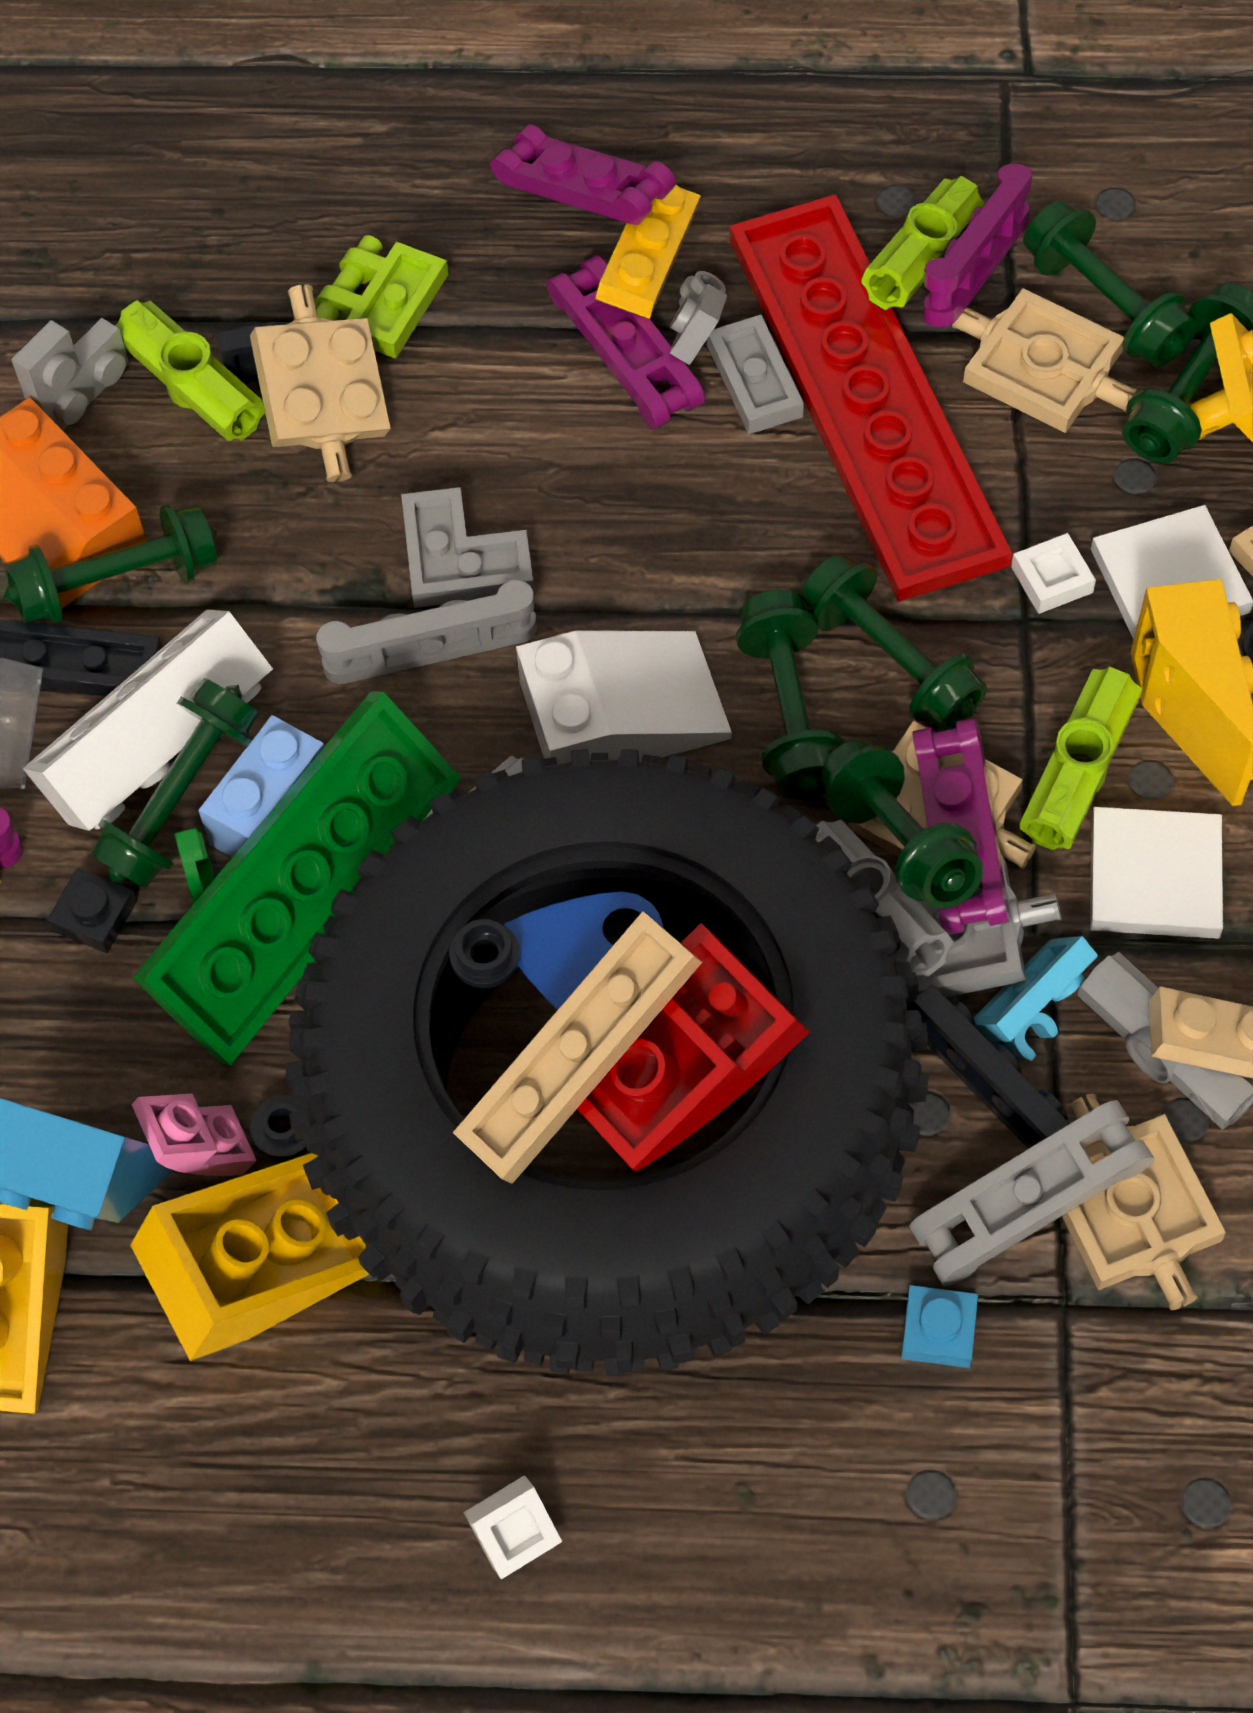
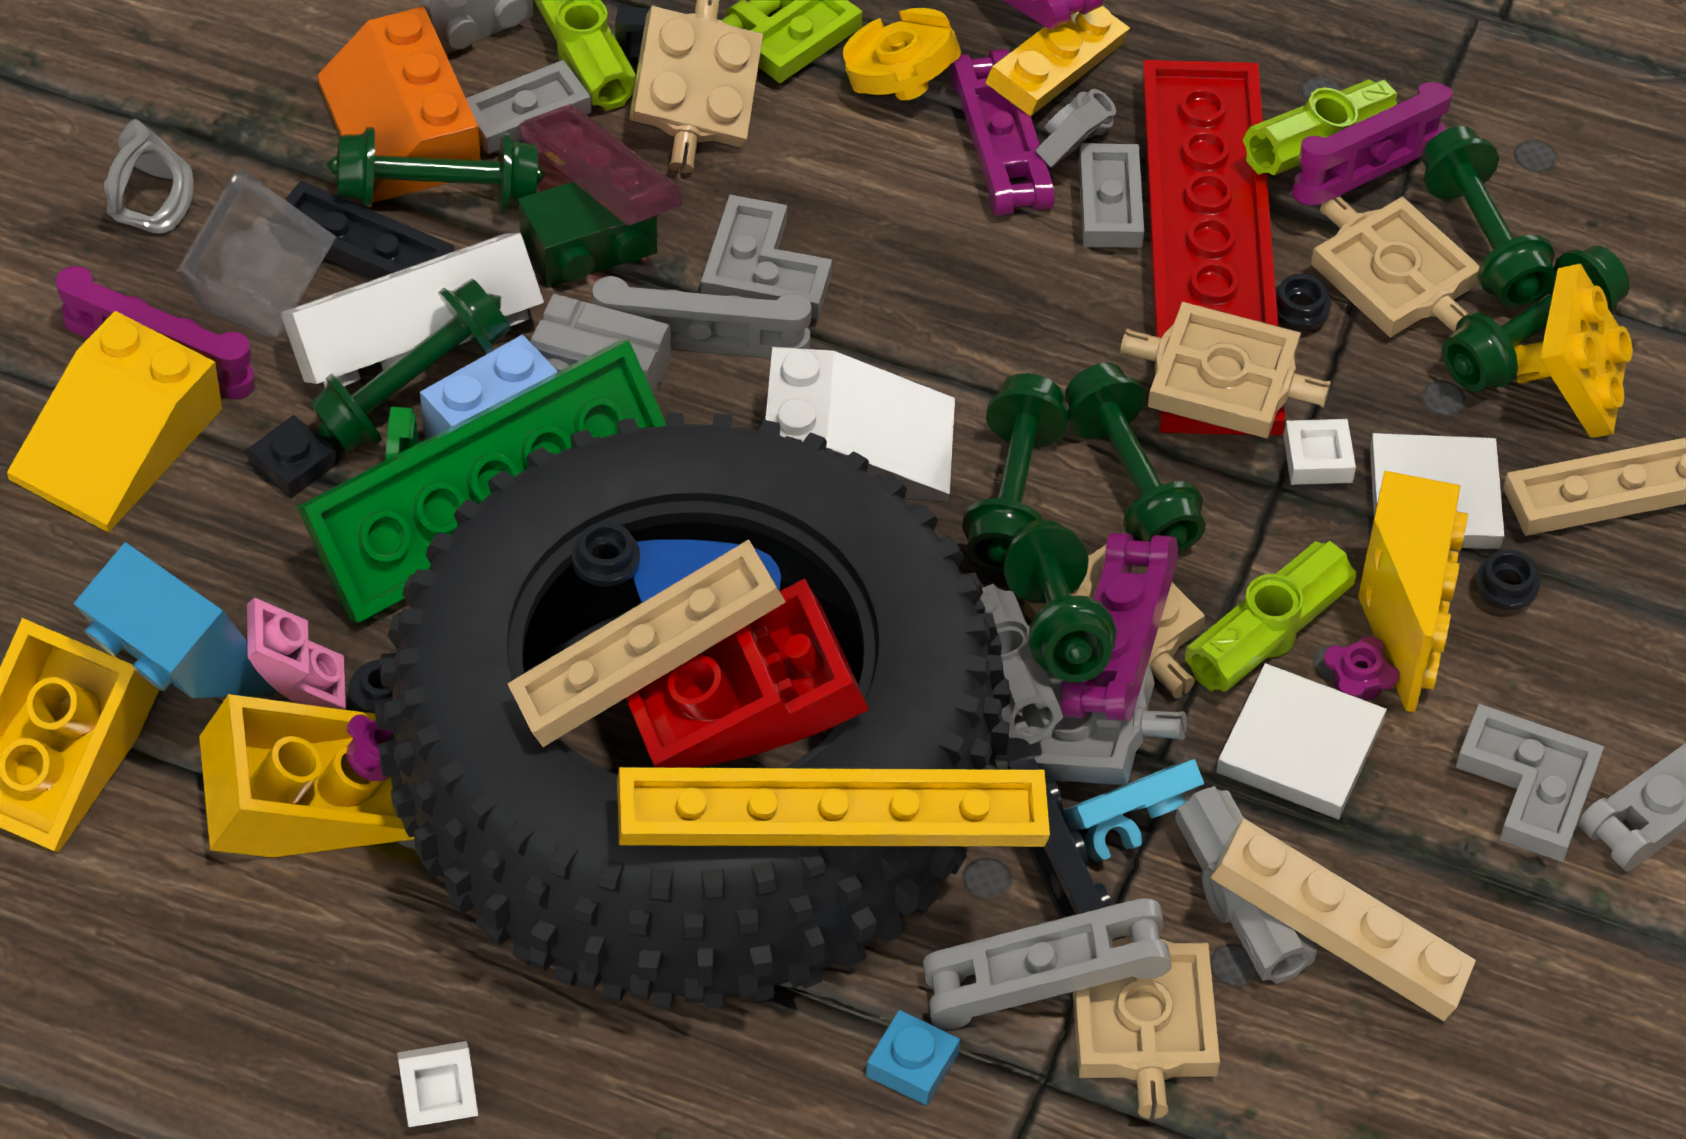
camera: 15 degrees right, 10 degrees down
(168, 462) = (511, 103): none -> light grey plate
(272, 509) = (601, 164): none -> clear pink tile
(279, 572) = (578, 236): none -> dark green brick
(299, 1207) = (363, 748): none -> magenta plate
(325, 691) = (579, 329): none -> light grey brick
(502, 293) = (901, 54): none -> yellow plate
(816, 1151) = (832, 807): none -> yellow plate
(942, 524) = (1224, 369): none -> tan plate
(977, 414) = (1302, 302): none -> black plate
(1176, 795) = (1356, 681): none -> magenta plate

